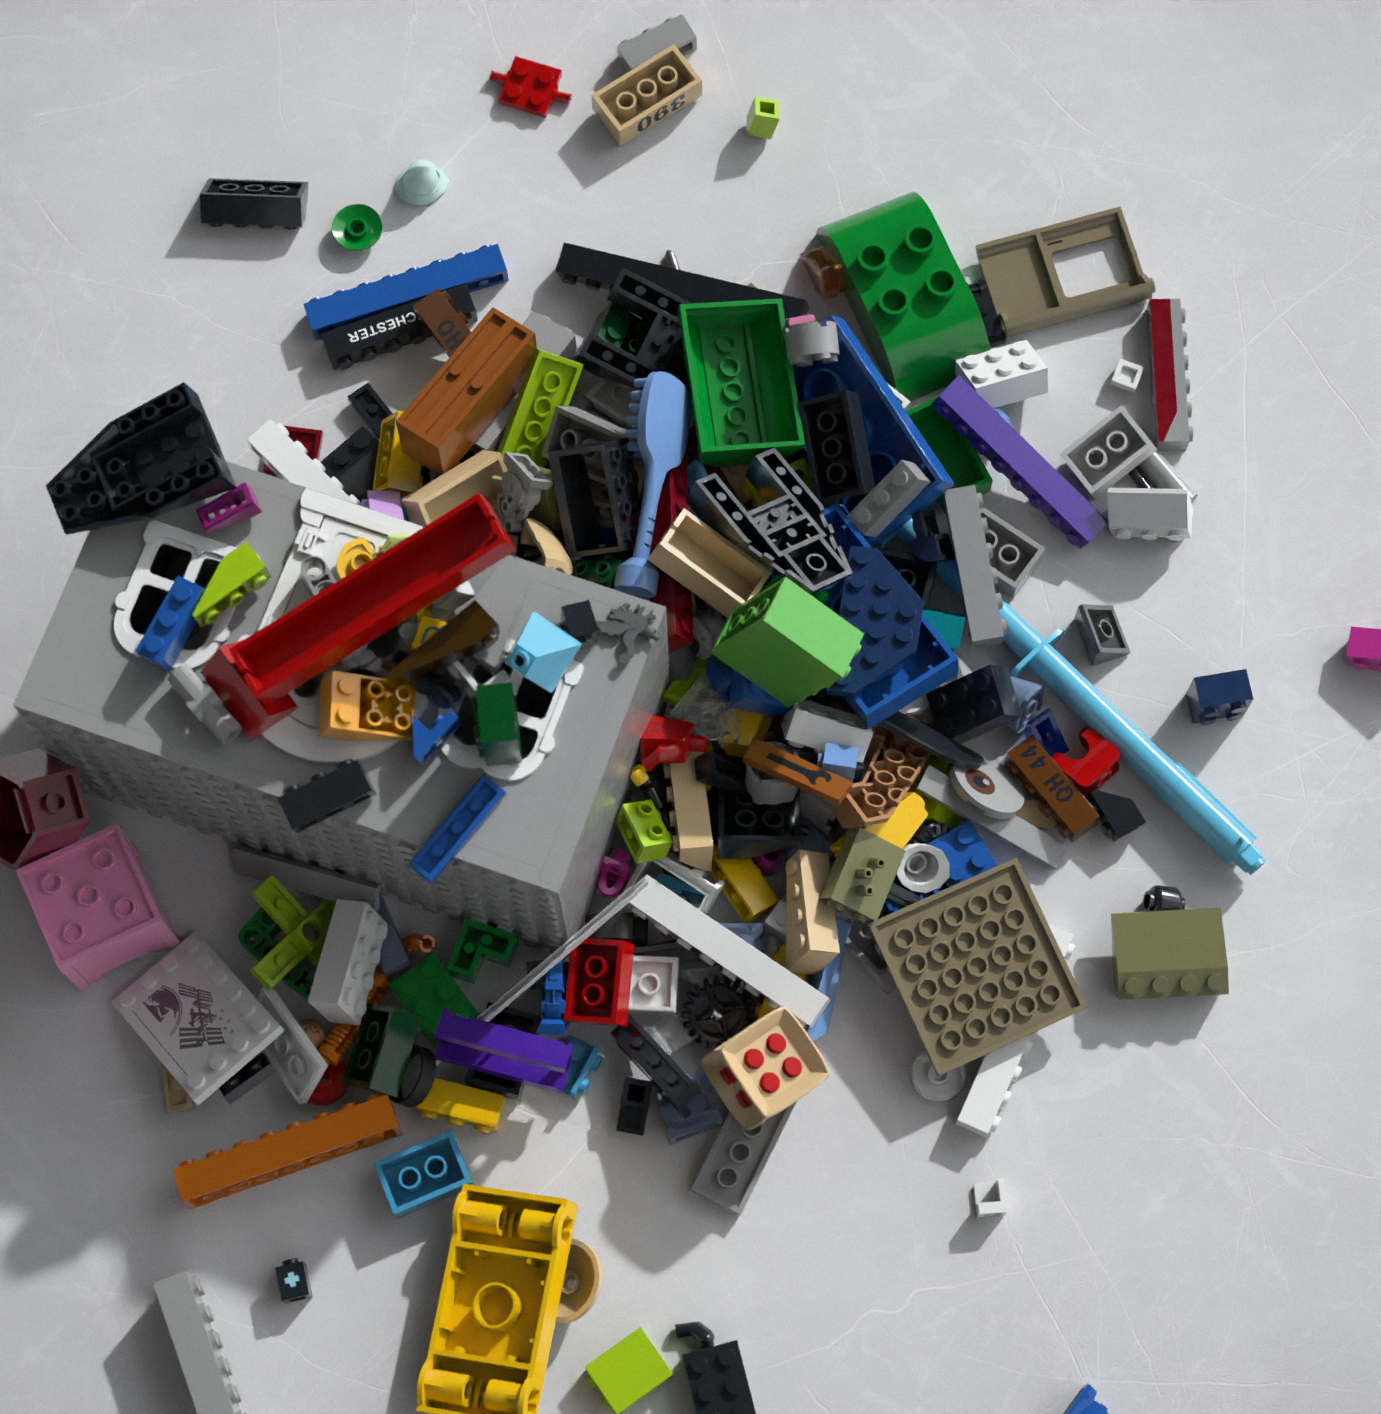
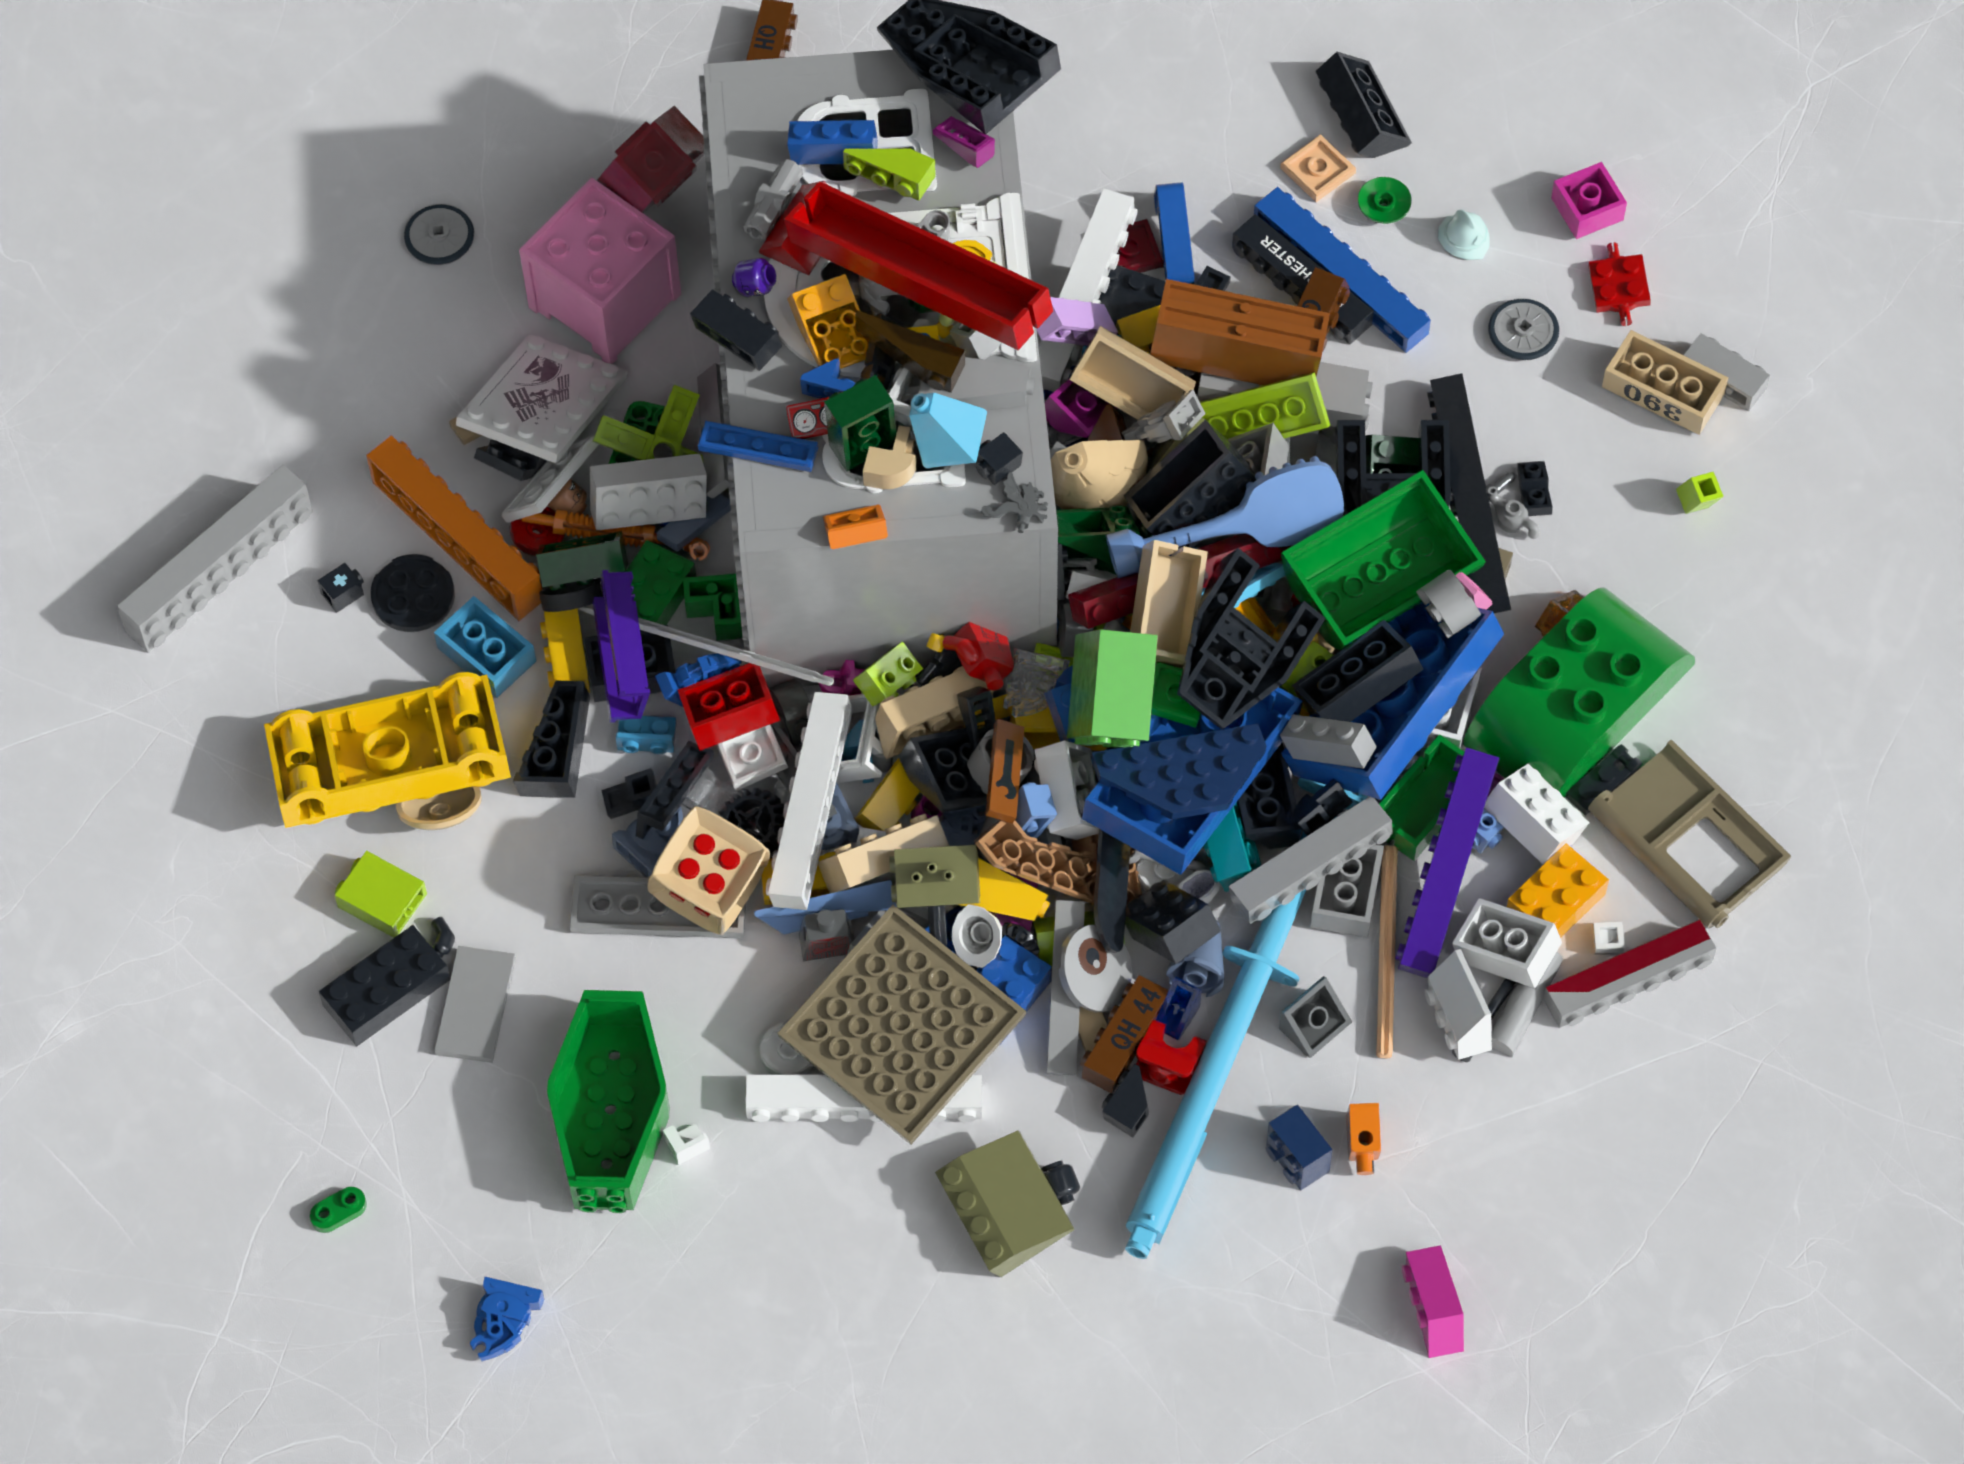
camera: 65 degrees right, 10 degrees down
(279, 756) = (754, 277): none -> dark purple head
(293, 266) = (1318, 168): none -> light nougat tile
(303, 407) = (1174, 231): none -> blue beam
(328, 1218) = (412, 593): none -> black tile
(444, 70) = (1588, 200): none -> dark pink brick
(457, 764) = (807, 419): none -> slope
(542, 192) = (1512, 341): none -> light grey wheel
(544, 720) = (891, 467): none -> tan brick
(560, 1155) = (555, 752): none -> black wedge
(582, 778) = (855, 526): none -> orange slope
(690, 242) = (1534, 488): none -> black slope
(712, 265) = (1512, 515): none -> light grey piece
(773, 1330) = (475, 1004): none -> light grey tile
(850, 997) = (825, 935): none -> dark grey torso
(963, 1245) = (589, 1082): none -> green container
(1076, 395) = (1561, 890): none -> light orange brick
(1080, 557) = (1387, 952): none -> light nougat axle
(1227, 641) = (1363, 1125): none -> orange torso

